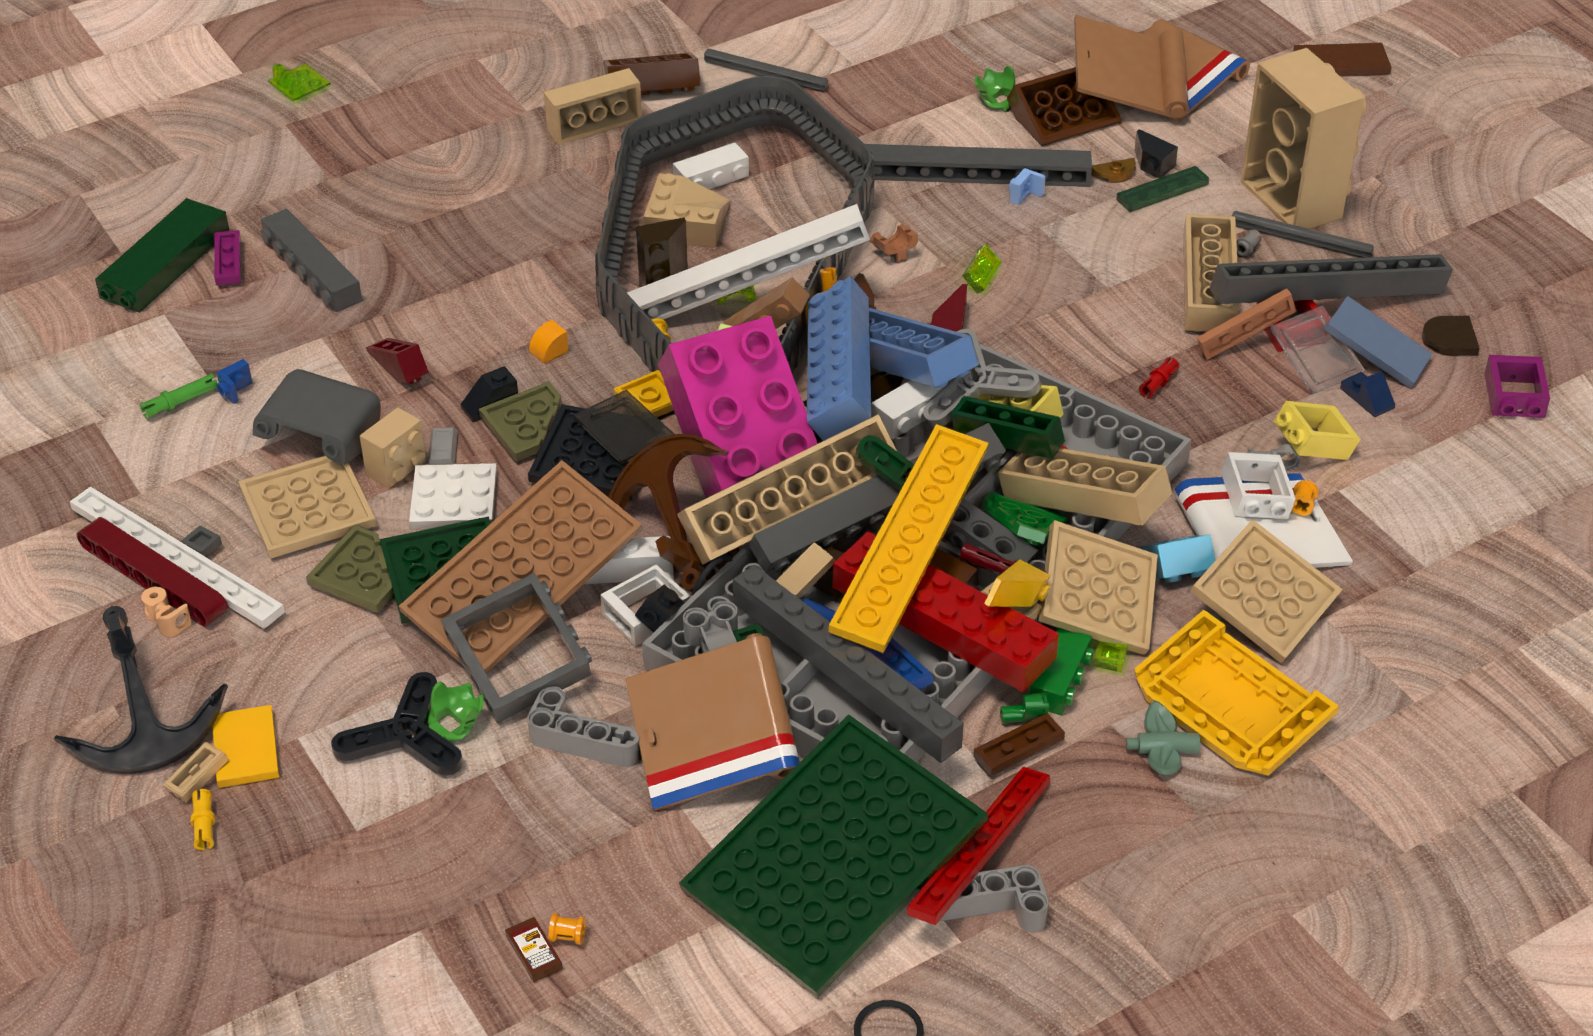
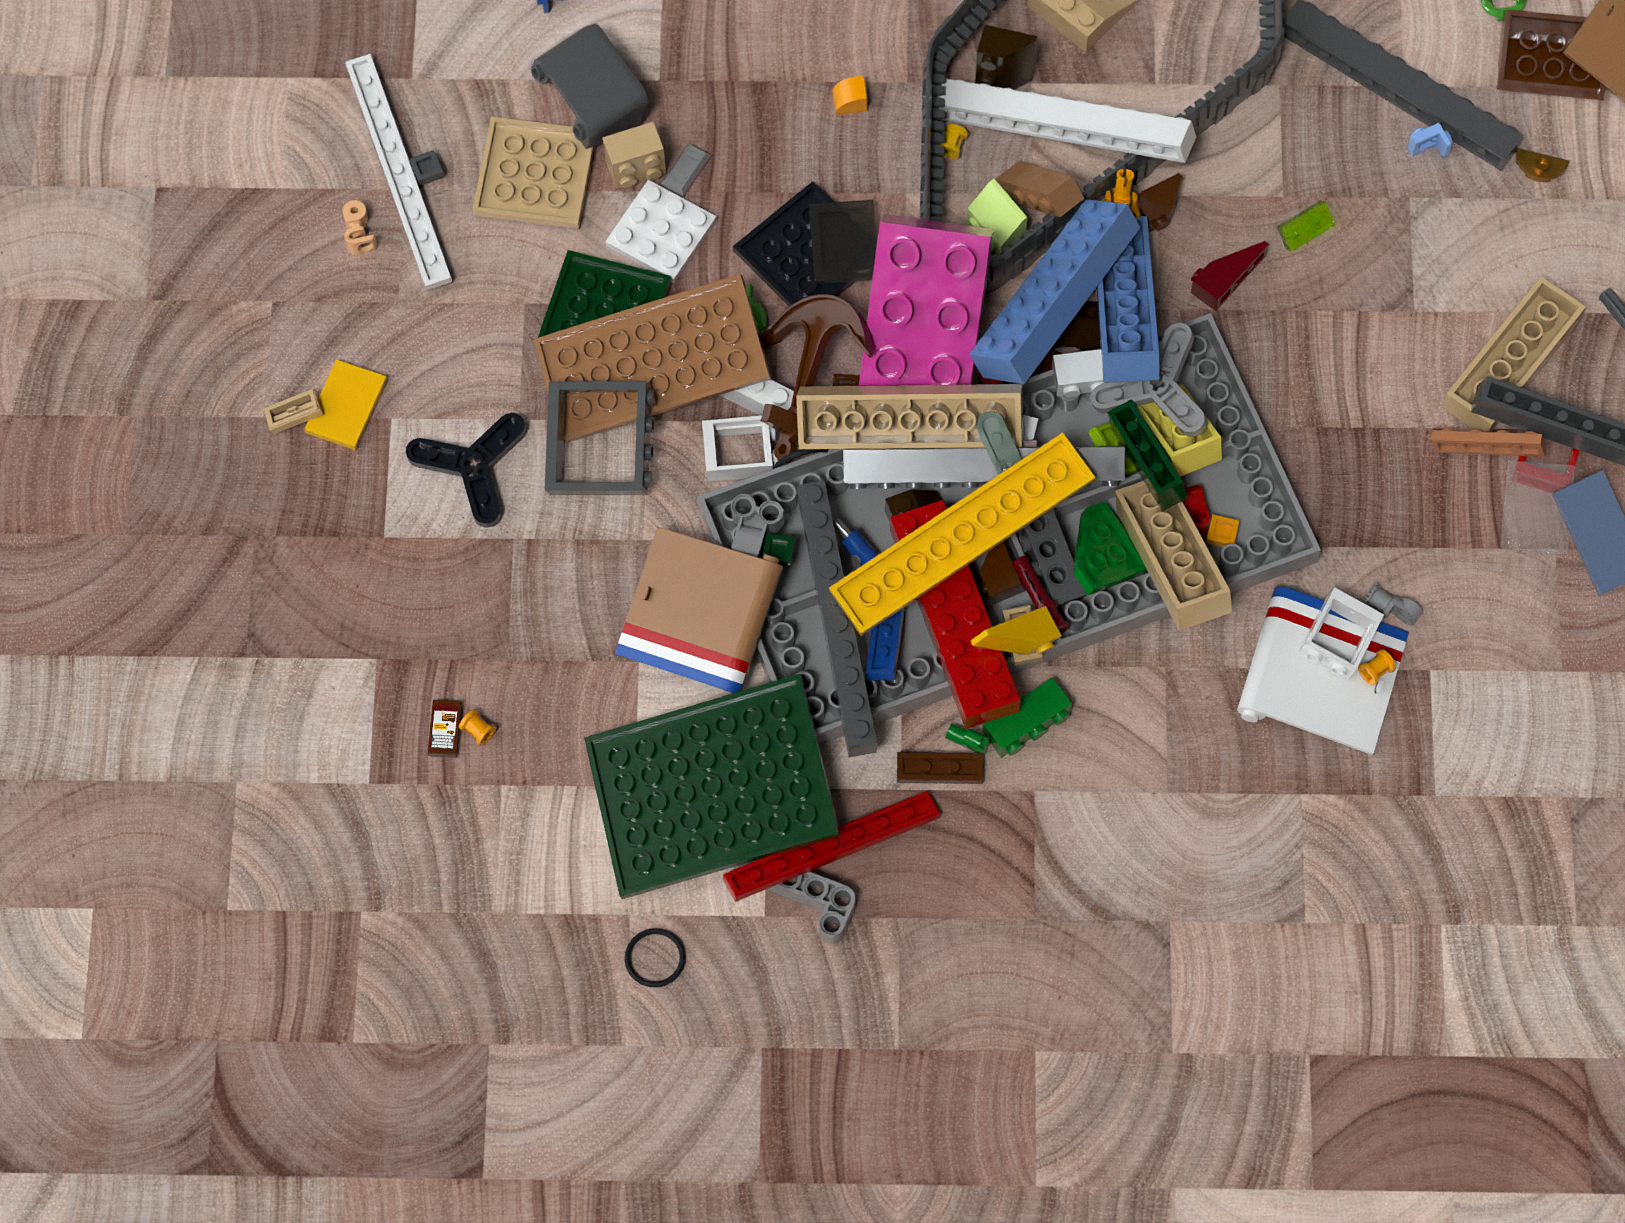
camera: 35 degrees right, 25 degrees up
(149, 742) = (274, 361): black piece -> none
(152, 570) = (370, 178): dark red beam -> none
(202, 819) = (274, 460): yellow pin -> none
(355, 571) = (530, 271): olive plate -> none
(400, 359) = (707, 42): dark red slope -> none
(459, 704) = (530, 463): bright green helmet -> none
(488, 390) = (759, 133): black slope -> none
(523, 419) = (771, 177): olive plate -> none
(578, 735) = (607, 551): light grey beam -> none
(649, 391) = (895, 201): yellow plate -> none
(658, 607) = (736, 467): black bracket -> none
(806, 570) = (869, 506): tan tile -> none
(901, 241) = (1248, 148): nougat piece -> none
(1099, 587) = (1112, 660): tan plate -> none
(1110, 656) = (1082, 726): clear neon green plate -> none
(1154, 154) = (1591, 170): black slope -> none
(1159, 377) = (1369, 450): red pin -> none
(1162, 188) = (1568, 216): clear green tile -> none
(1163, 740) = (1057, 836): sand green plant -> none
(1182, 557) = (1220, 661): medium azure slope -> none
(1232, 696) = (1147, 827): yellow slope -> none
(1247, 243) = (1589, 335): light grey pin -> none
(1266, 590) = (1258, 745): tan plate -> none
(1334, 435) = (1475, 607): light yellow window -> none
(1369, 392) = (1549, 581): dark blue slope -> none

